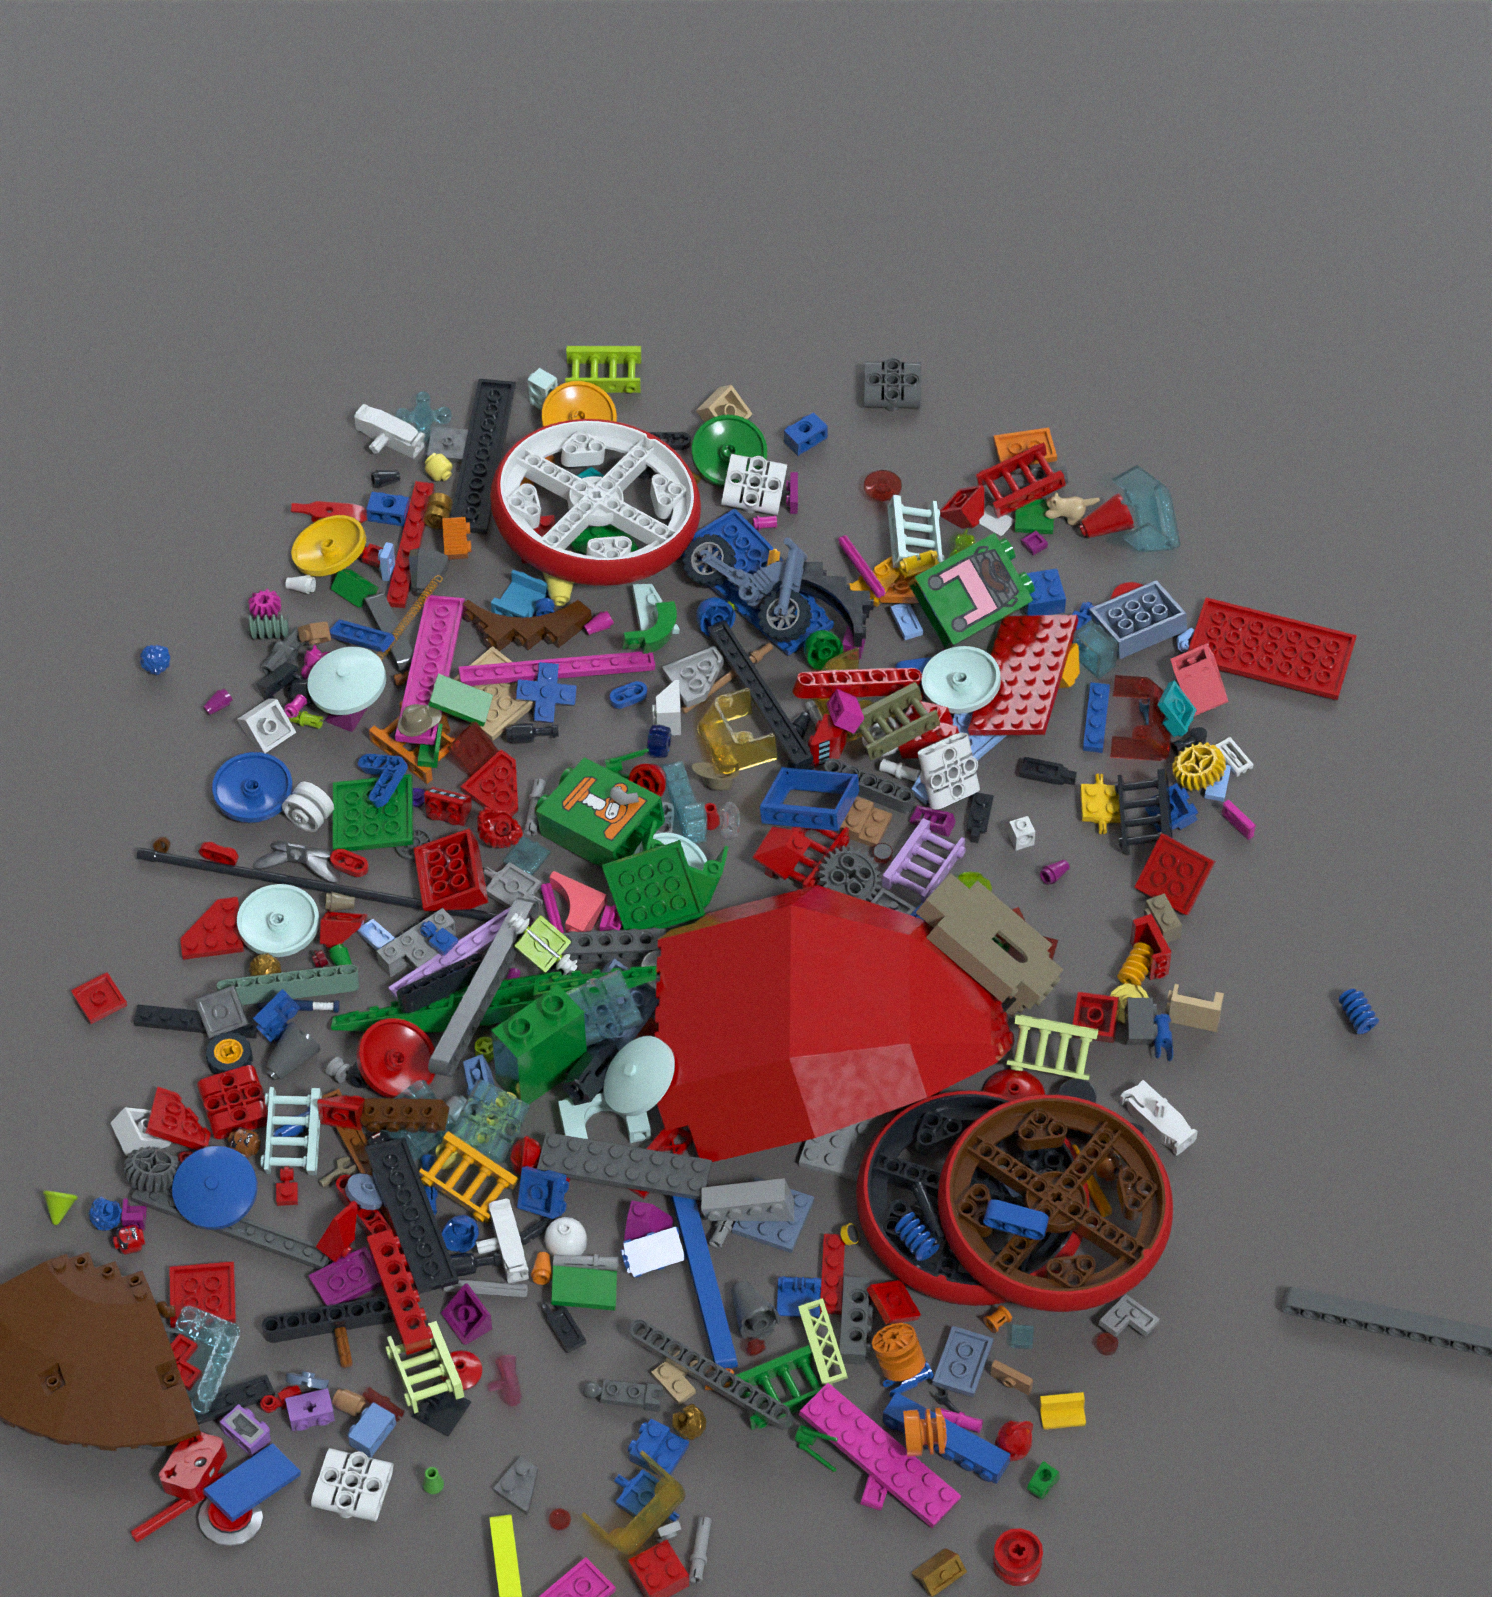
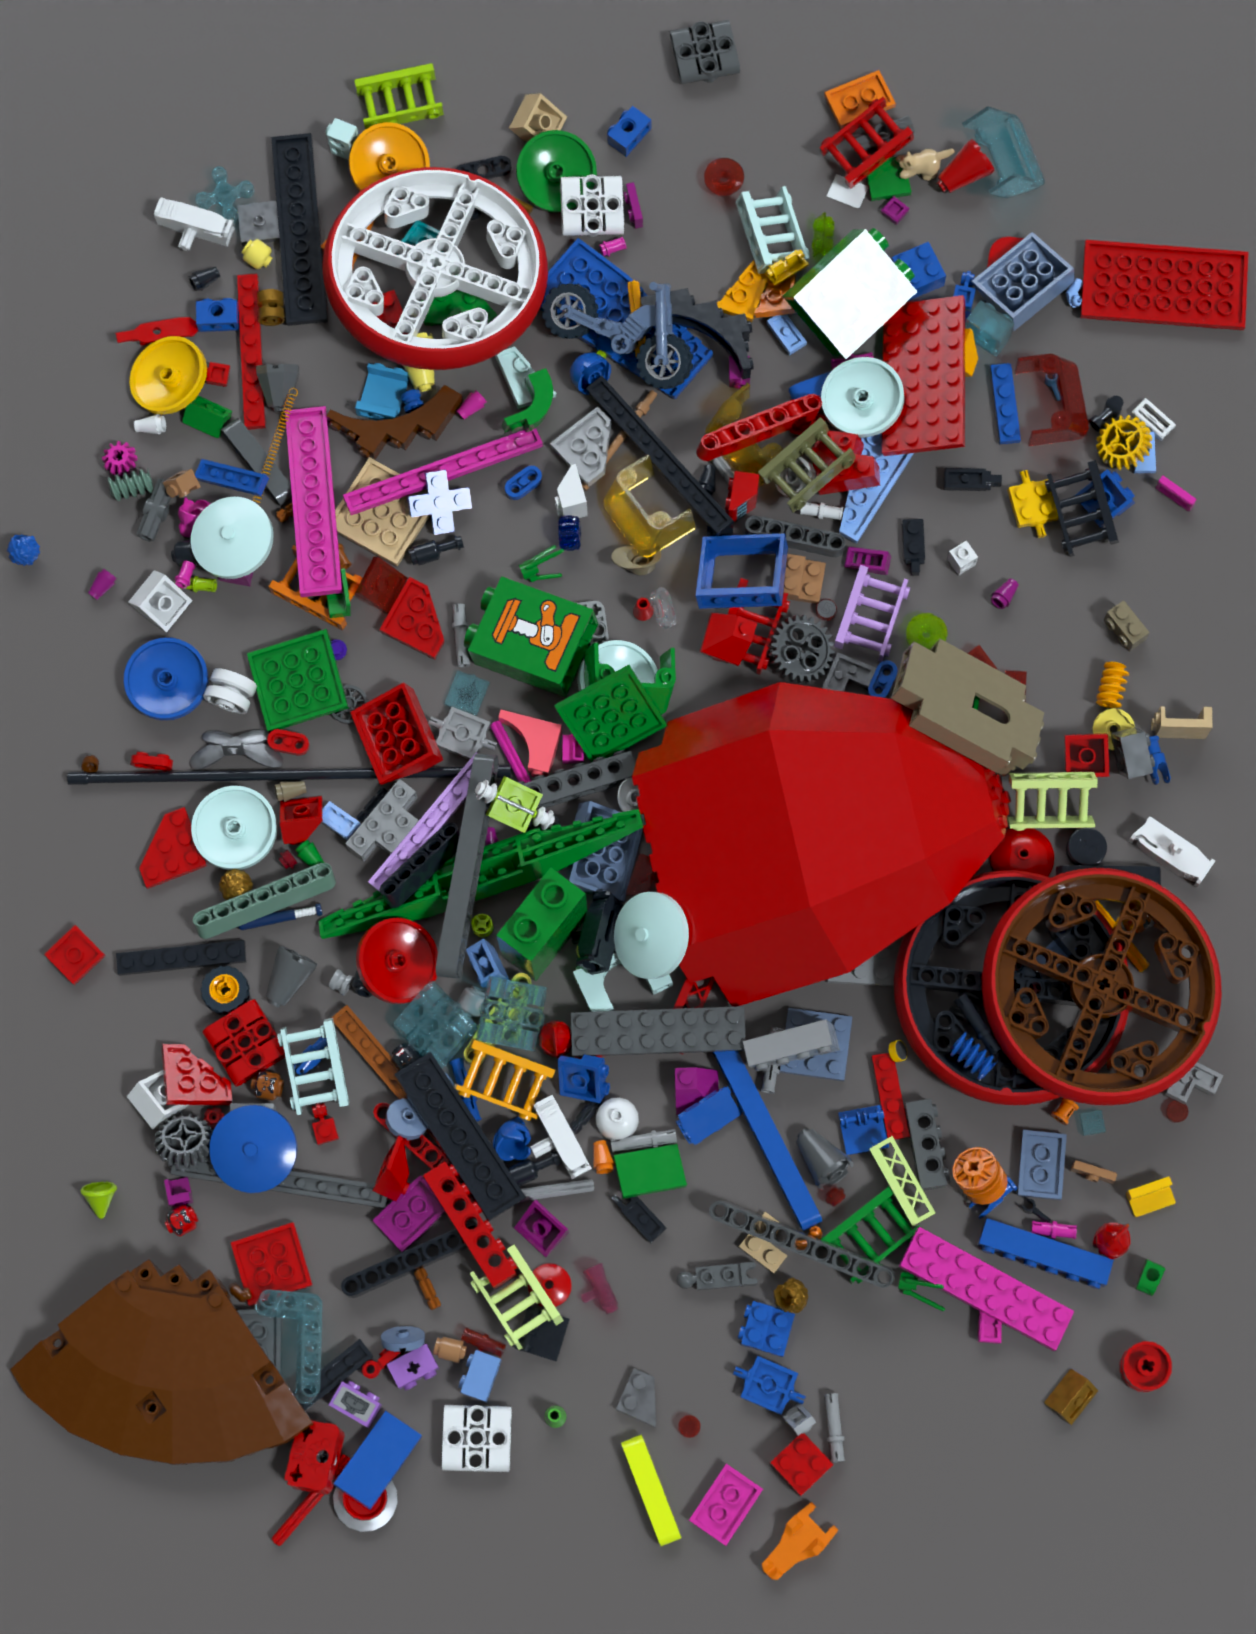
camera: 10 degrees left, 20 degrees up
(105, 1214) = (150, 1199): blue piece -> none
(183, 1349) = (268, 1338): red plate -> none
(221, 1011) = (206, 948): flat silver plate -> none
(275, 1014) = (262, 946): blue plate -> none
(277, 680) = (157, 546): black hinge -> none
(341, 1111) = (361, 1033): red slope -> none
(341, 1163) = (370, 1095): dark tan bar -> none
(370, 765) = (303, 633): blue beam -> none
(387, 561) = (234, 382): light blue plate -> none
(405, 1114) = (425, 1028): reddish brown brick -> none
(418, 719) = (319, 569): dark tan piece -> none
(441, 941) = (410, 819): blue plate -> none
(447, 806) = (372, 655): red slope -> none
(455, 537) = (298, 337): orange brick -> none
(460, 700) = (355, 533): tile -> none
(492, 826) = (426, 677): red hair -> none
(622, 798) = (553, 619): light grey arm -> none
(627, 1012) = (596, 865): clear light blue connector -> none
(649, 777) = (570, 583): red cone -> none
(668, 1497) = (768, 1441): clear yellow windscreen -> none
(690, 814) = (627, 620): clear light blue beam -> none
(821, 647) = (709, 386): green cylinder -> none
(845, 711) = (756, 465): dark pink panel -> none
(861, 566) = (726, 280): dark pink axle -> none
(893, 1302) = (960, 1119): red plate -> none
(924, 1432) = (1028, 1264): orange wheel -> none
(948, 771) = (875, 508): white connector -> none
(965, 507) = (815, 184): red slope -> none
(1016, 1219) = (1073, 1025): blue beam -> none
(1147, 931) = (1123, 653): red panel -> none
(1175, 872) = (1129, 574): red plate -> none
(1177, 708) = (1088, 383): teal plate -> none
(1200, 678) = (1103, 341): coral slope -> none

